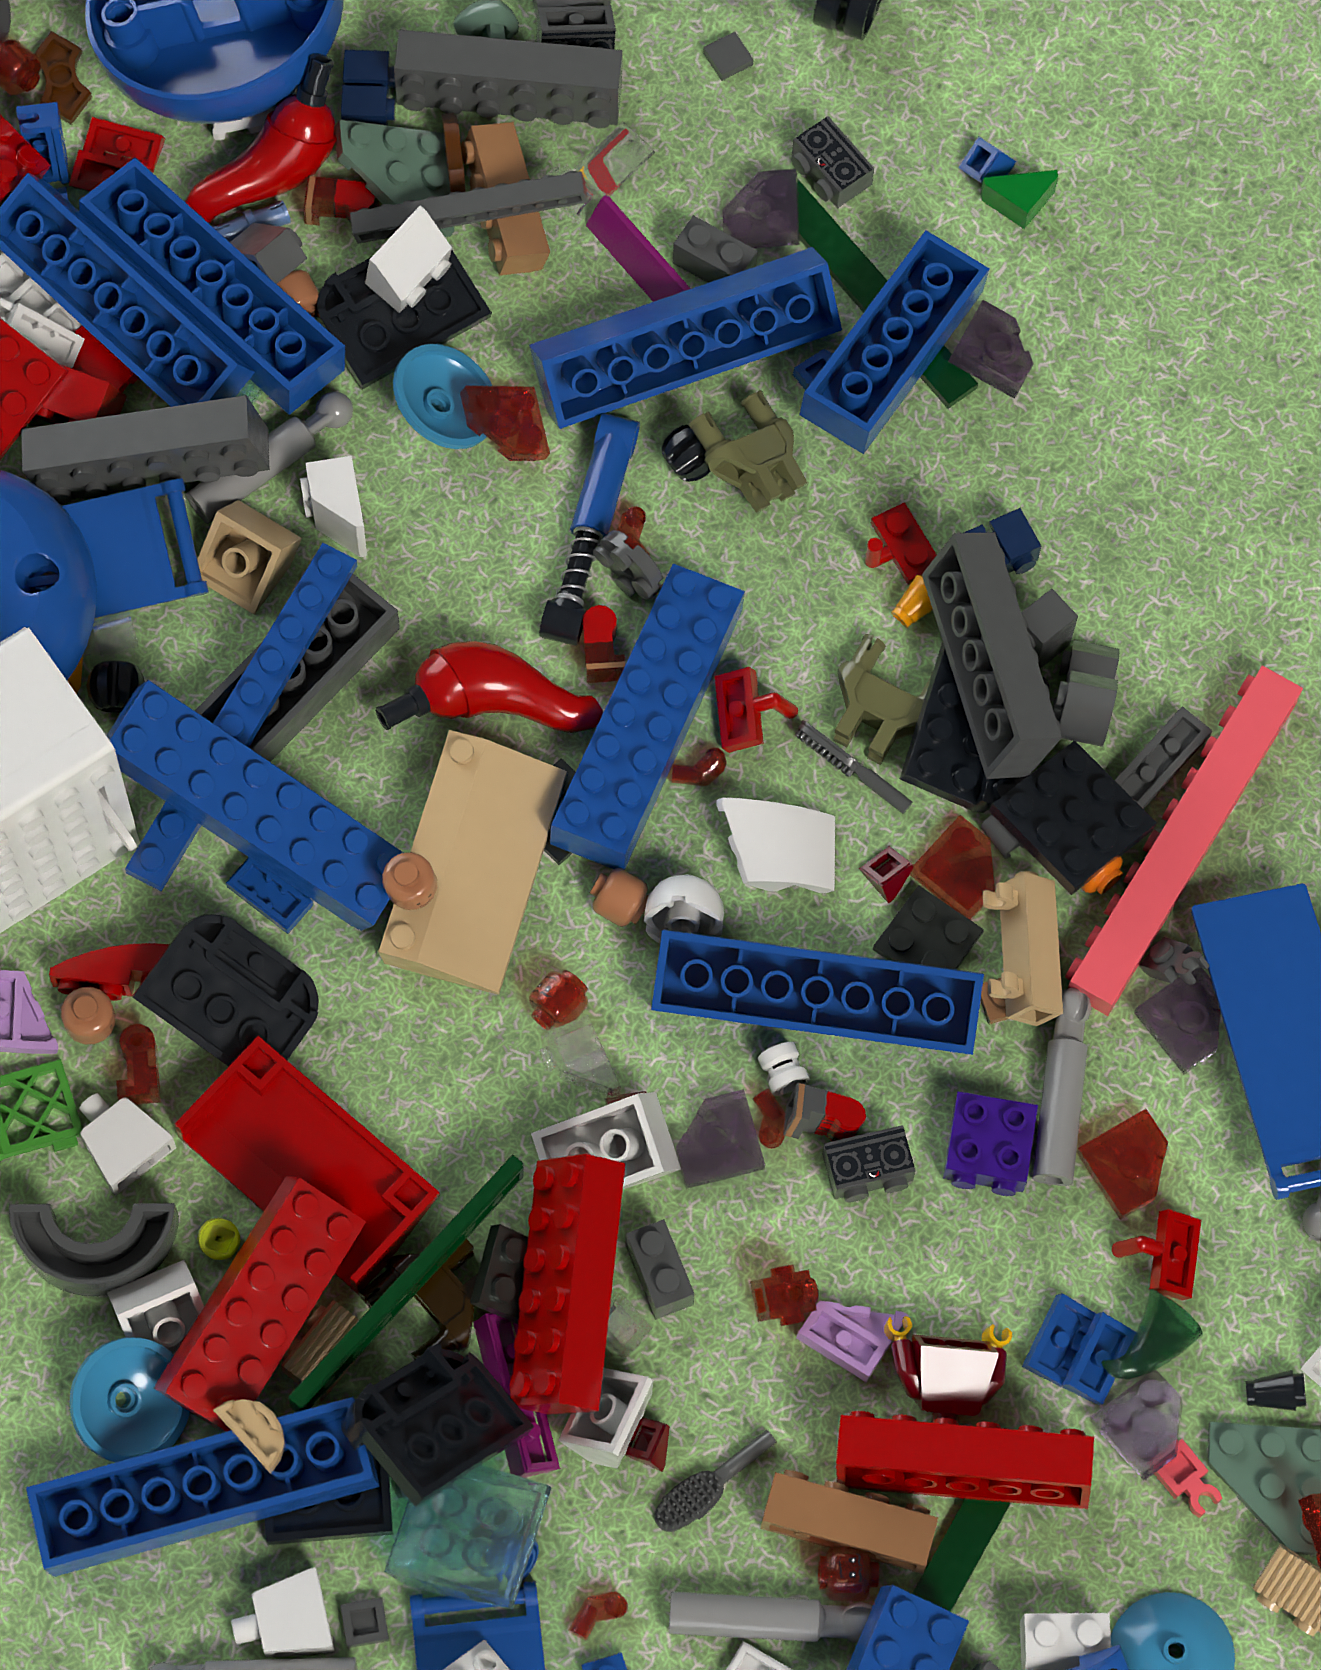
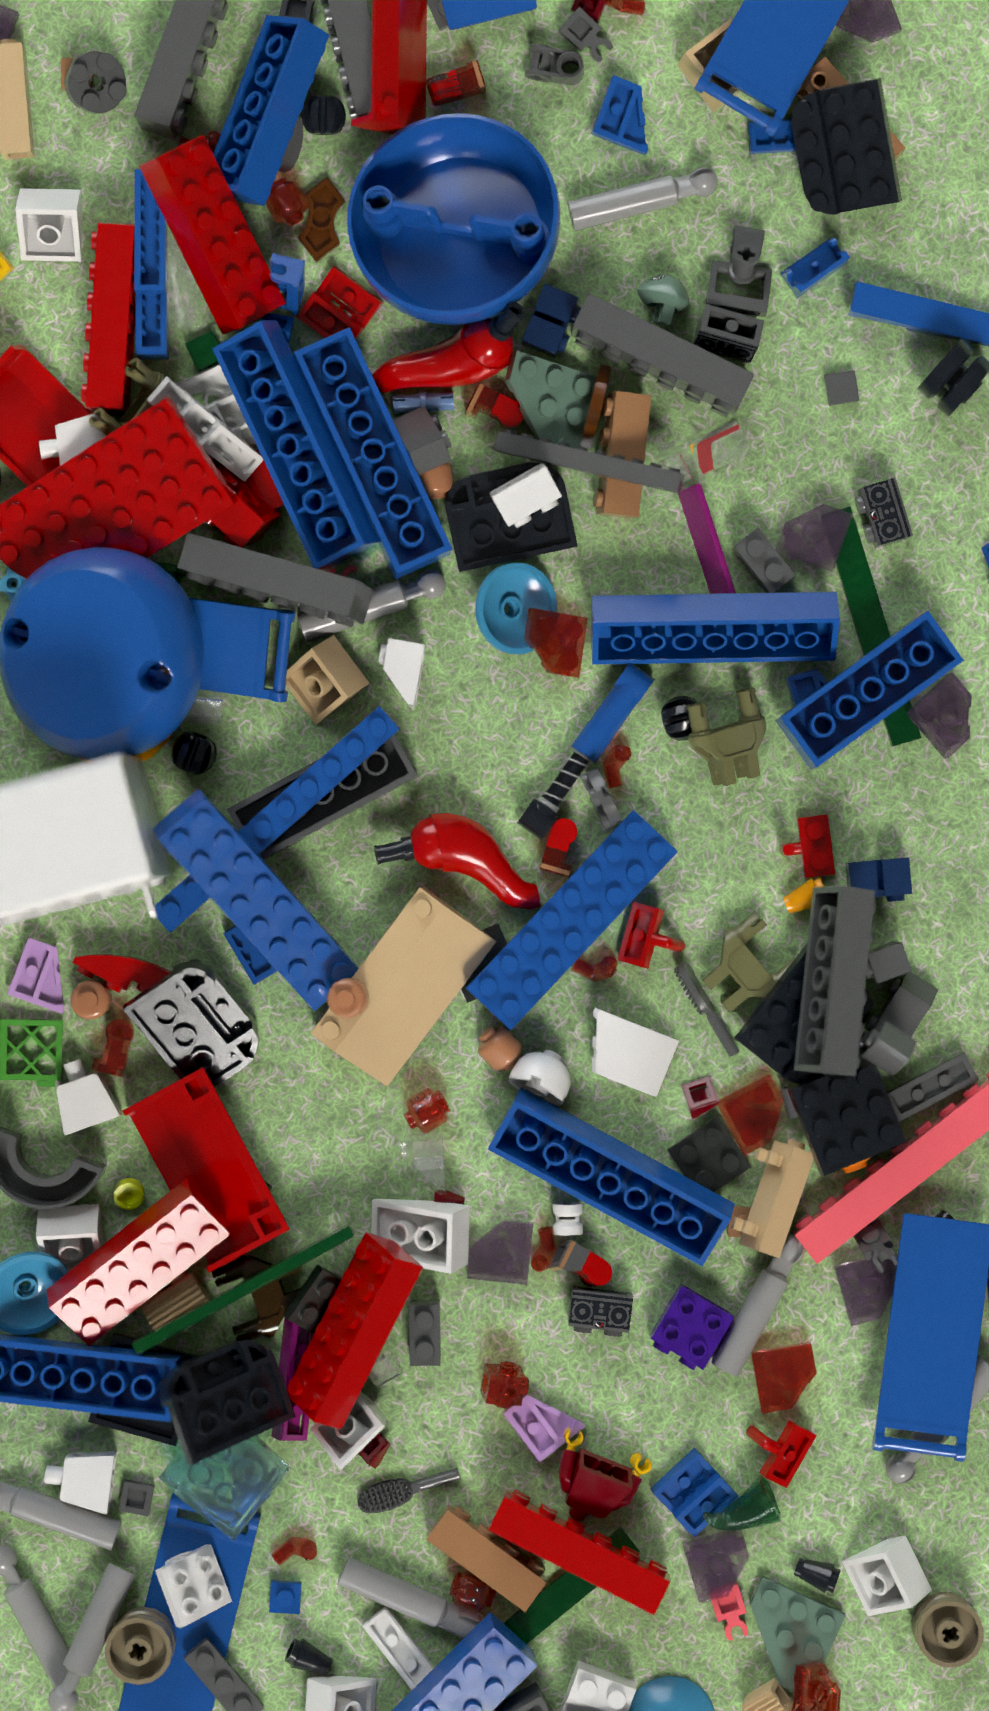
camera: 25 degrees right, 20 degrees up
(256, 1428) = (102, 1358): tan tile -> none

